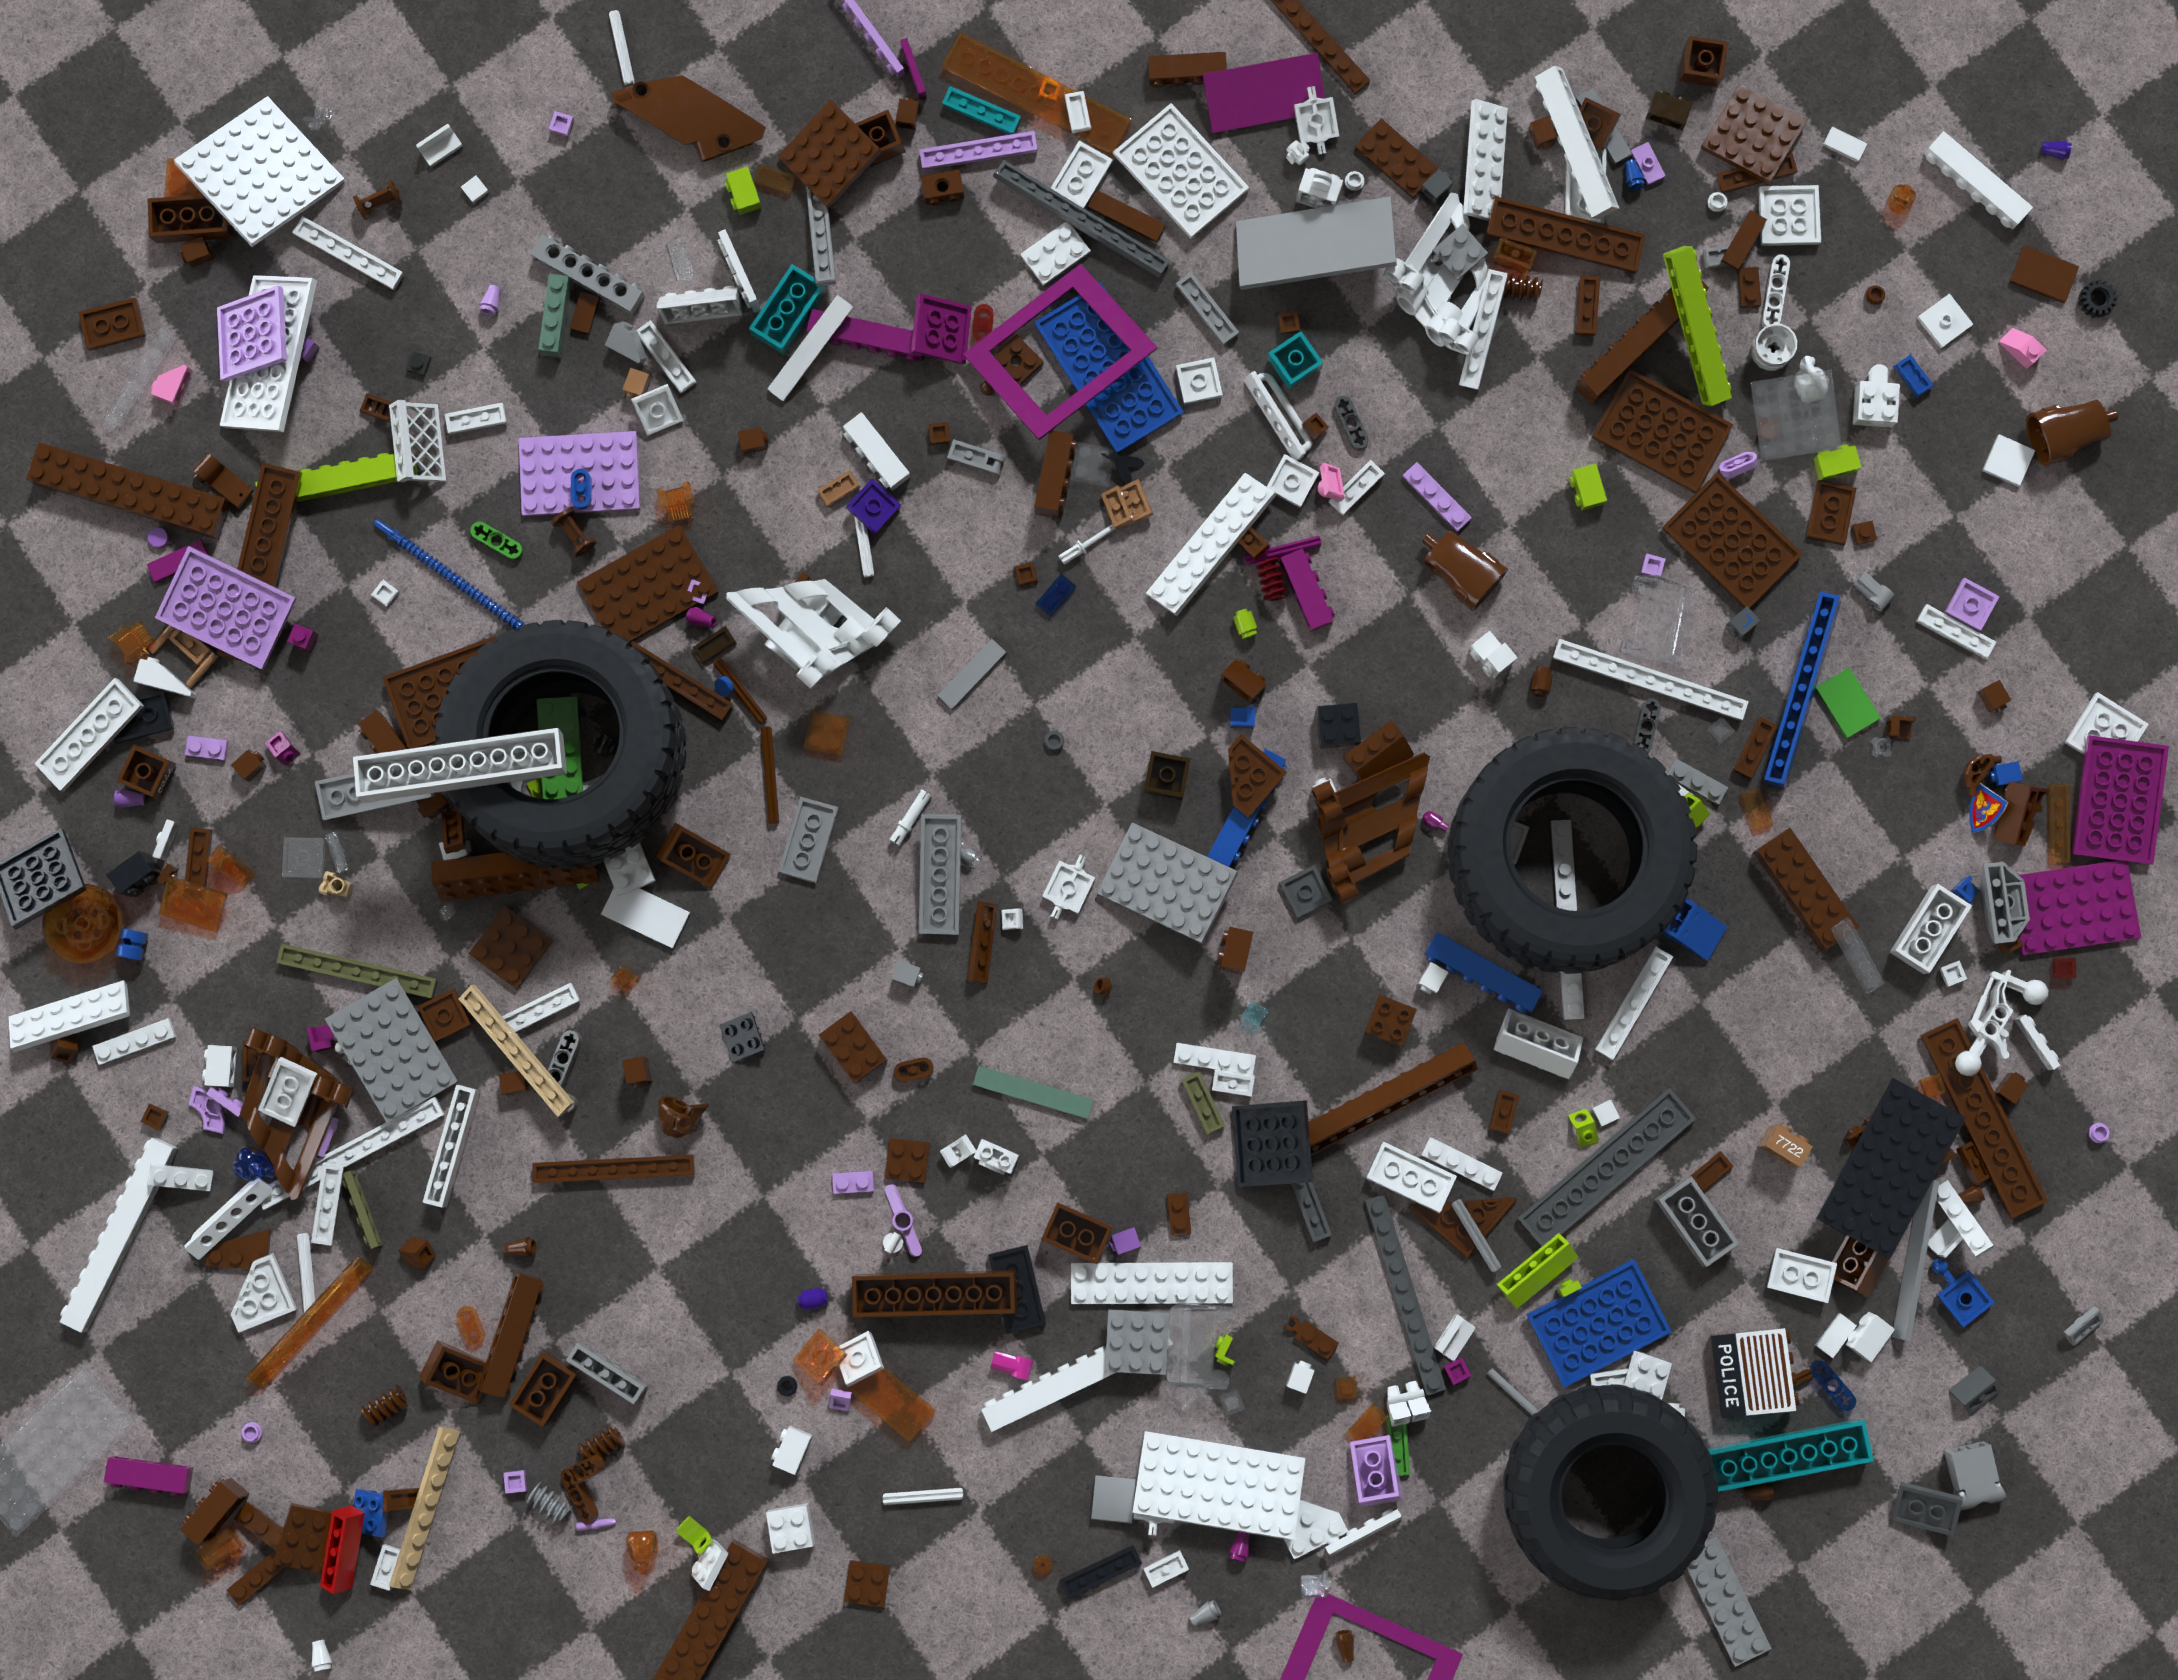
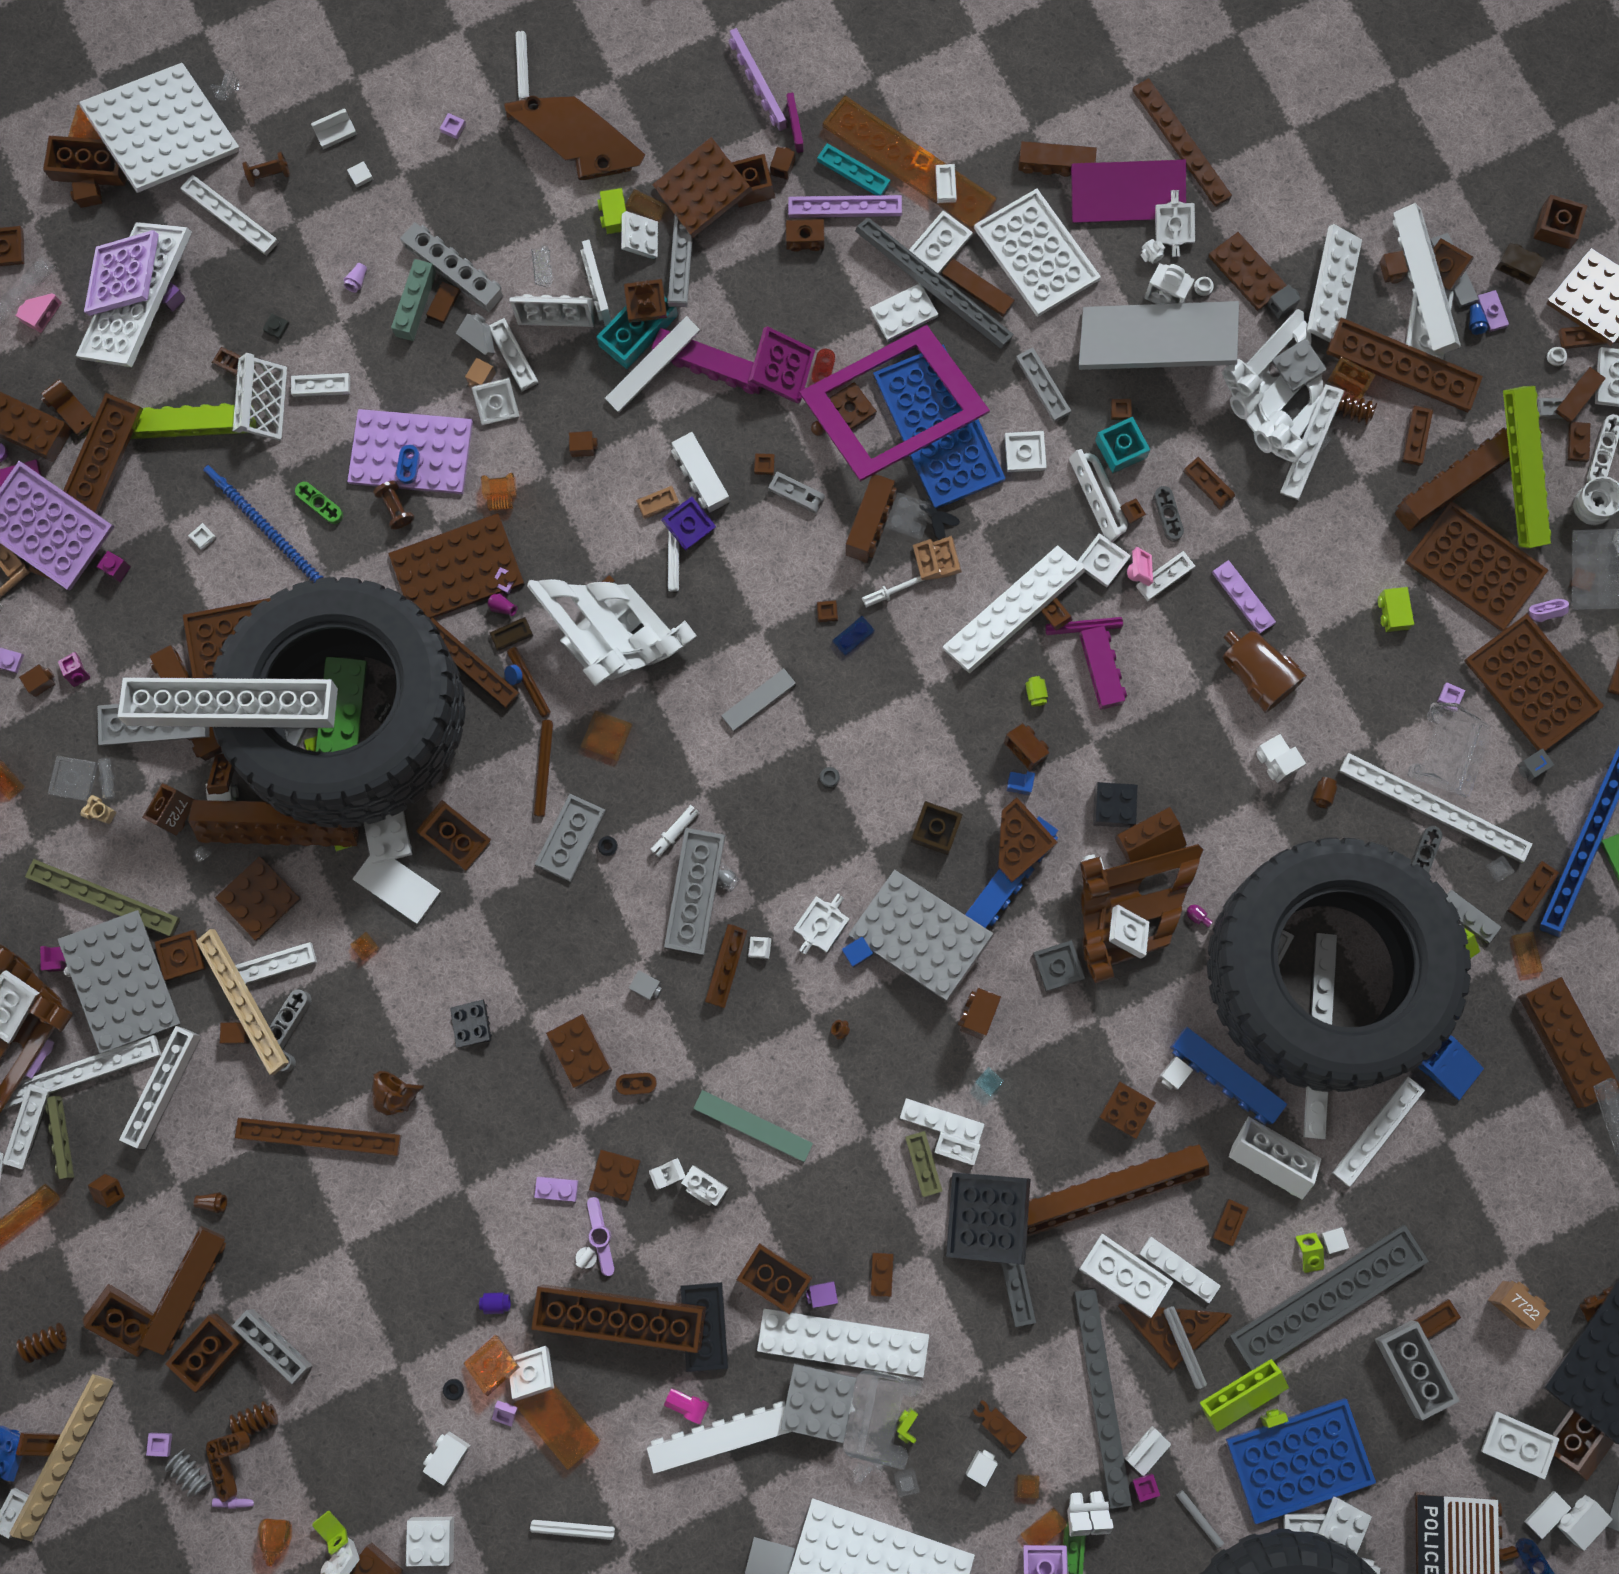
camera: 10 degrees right, 5 degrees down
(407, 874) = (169, 809): none -> reddish brown brick
(470, 1325) = (148, 1273): clear orange plate -> none
(637, 1071) = (359, 1041): reddish brown brick -> none
(774, 213) = (639, 235): none -> white plate
(792, 284) = (645, 300): none -> reddish brown plate
(851, 847) = (607, 839): none -> black plate
(1108, 908) = (857, 952): none -> blue panel
(1270, 580) = (1067, 652): dark red piece -> none
(1368, 848) = (1129, 931): none -> white plate
(1386, 385) = (1209, 482): none -> reddish brown plate

